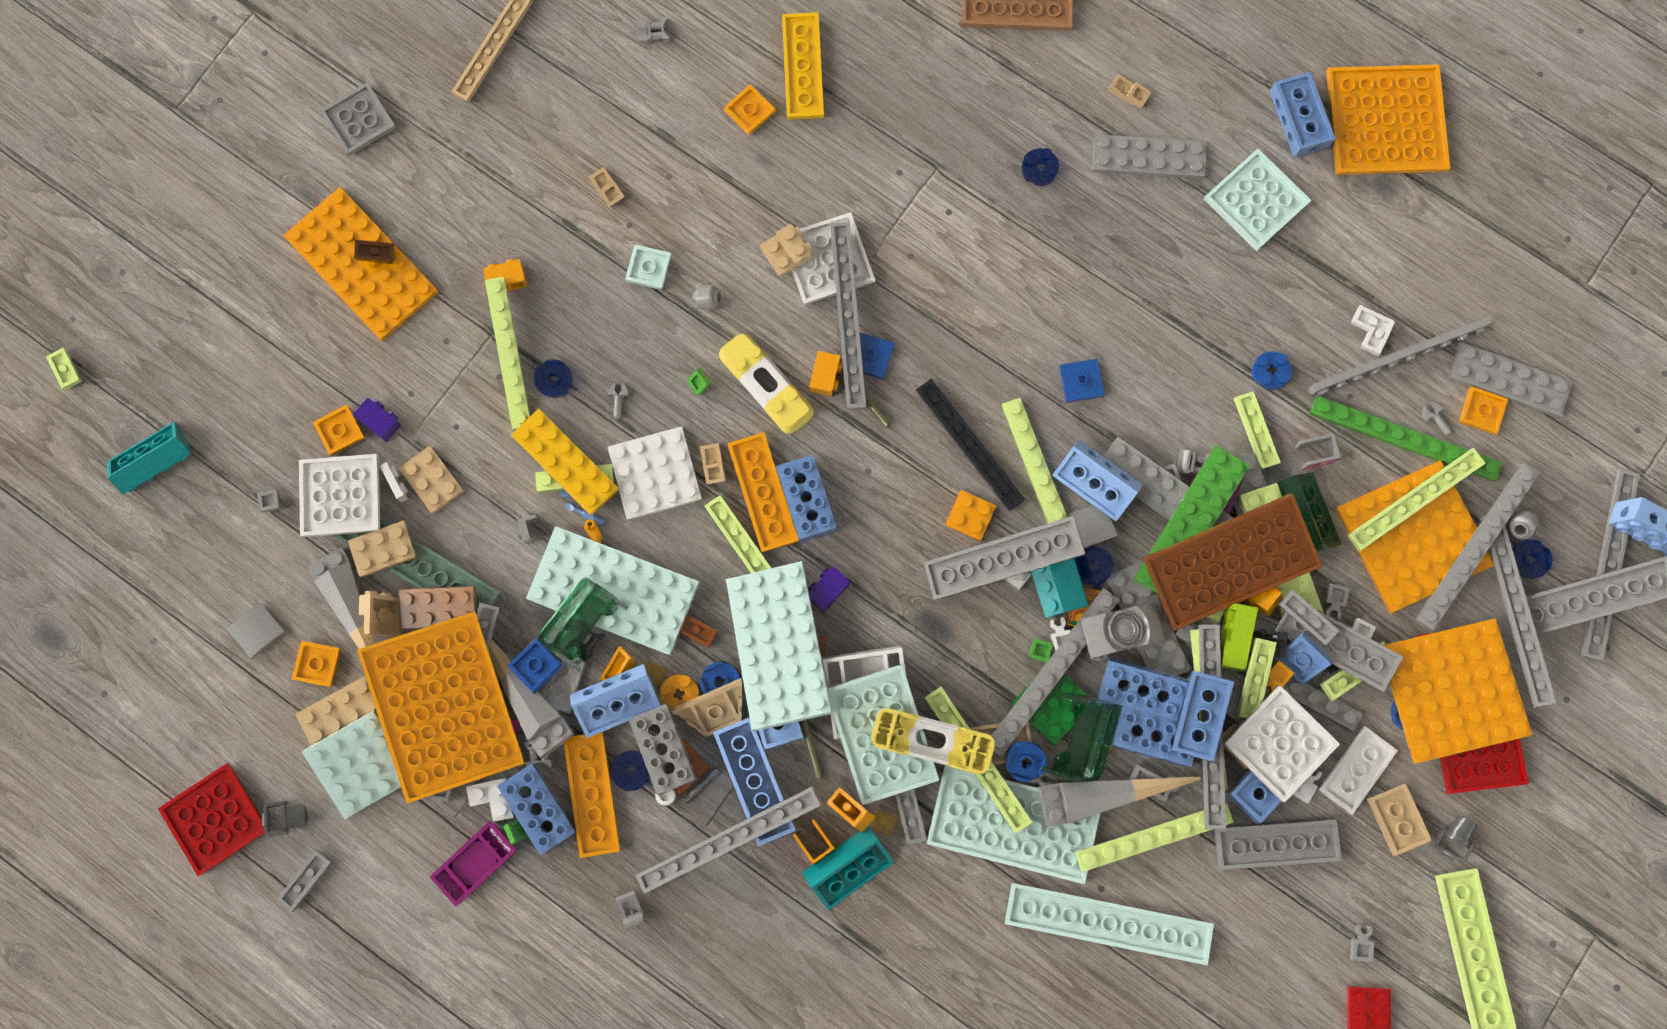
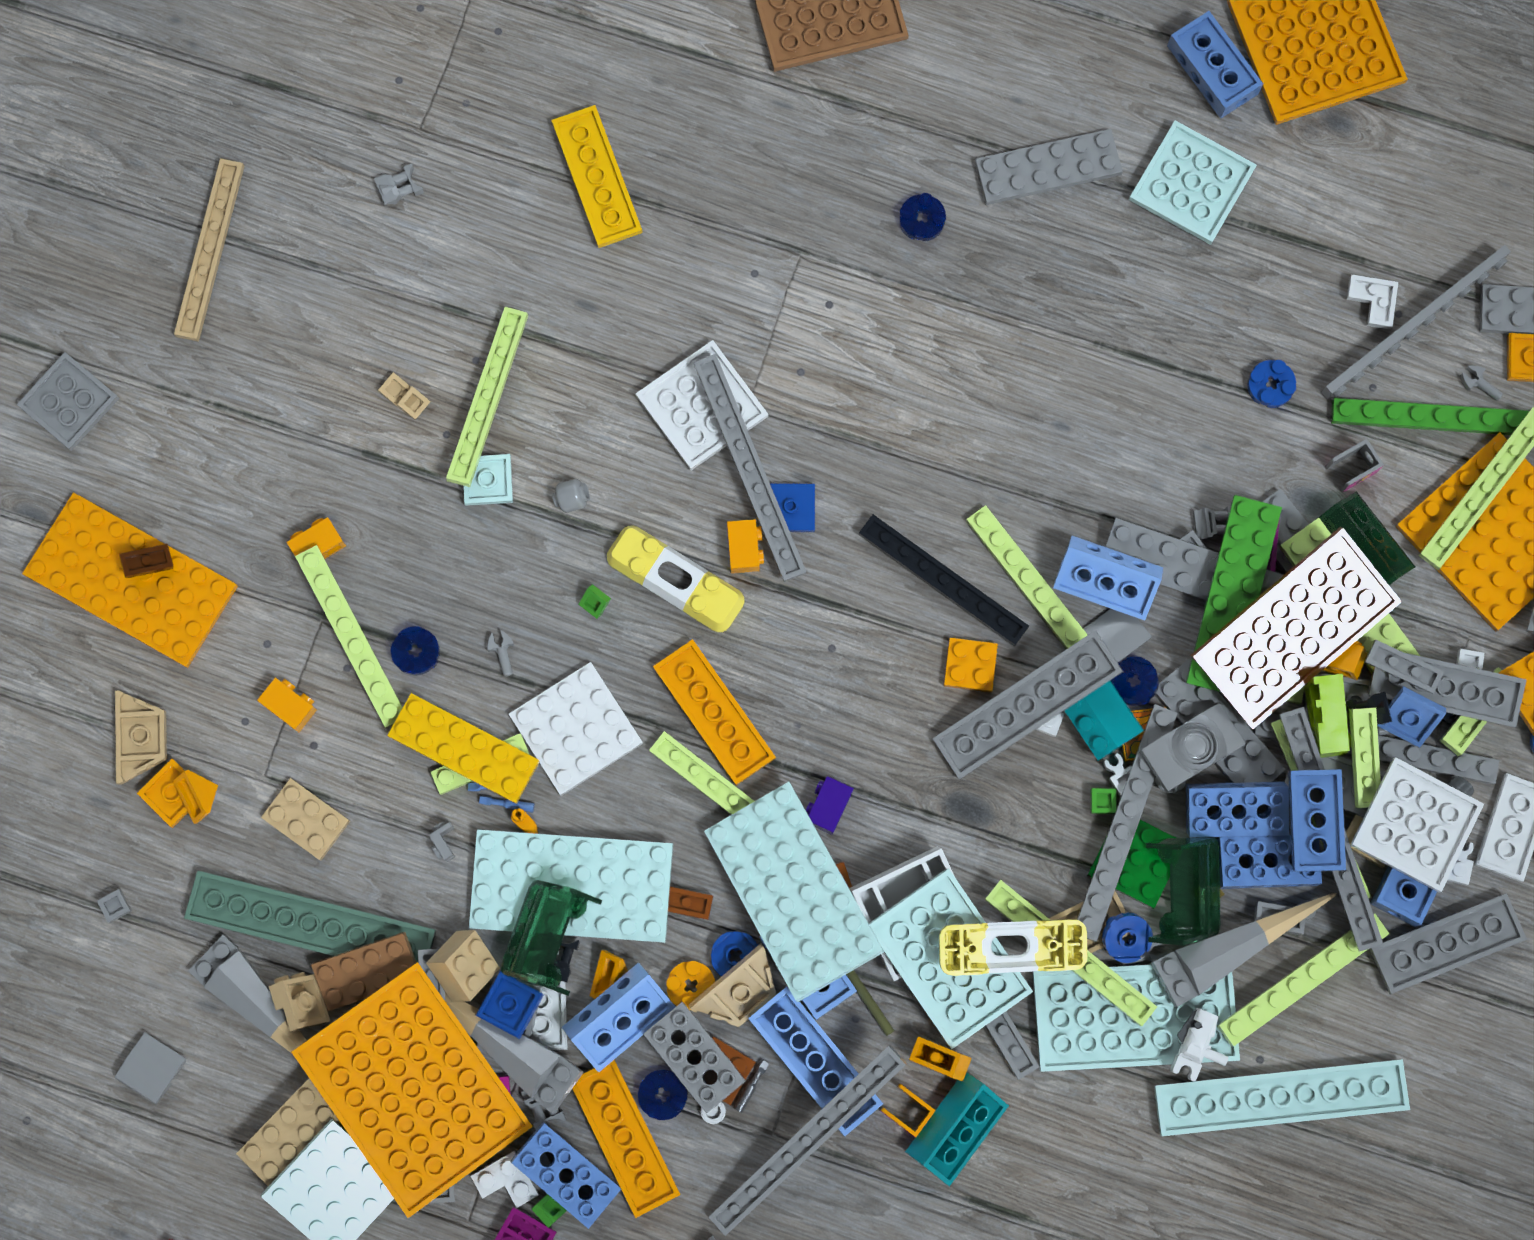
camera: 20 degrees left, 0 degrees up
(316, 664) = (239, 1085): light orange plate -> none
(328, 381) = (139, 737): none -> tan wing
(339, 495) = (201, 872): white plate -> none
(355, 435) = (196, 794): none -> light orange slope
(376, 419) = (215, 765): dark purple brick -> none
(382, 549) = (275, 921): tan plate -> none
(391, 474) = (270, 842): white plate -> none
(445, 390) = (286, 704): none -> light orange brick
(510, 625) = (463, 965): none -> tan brick
(656, 673) = (655, 969): clear yellow tile -> none
(667, 205) = (487, 397): none -> yellowish green plate
(712, 463) = (642, 696): tan slope -> none
(749, 110) = (549, 249): light orange plate -> none
(786, 250) = (650, 410): tan plate -> none
(812, 487) = (773, 688): medium blue brick -> none
(876, 411) = (819, 573): olive piece -> none
(884, 823) = (982, 1062): clear yellow tile -> none
(1053, 860) = (1195, 1041): none -> white piece
(1081, 380) = (1052, 463): blue plate -> none
(1129, 92) = (998, 94): tan slope -> none
(1257, 430) = (1276, 461): yellowish green plate -> none
(1278, 676) = (1390, 745): light orange plate -> none
(1336, 597) = (1428, 631): light grey plate -> none

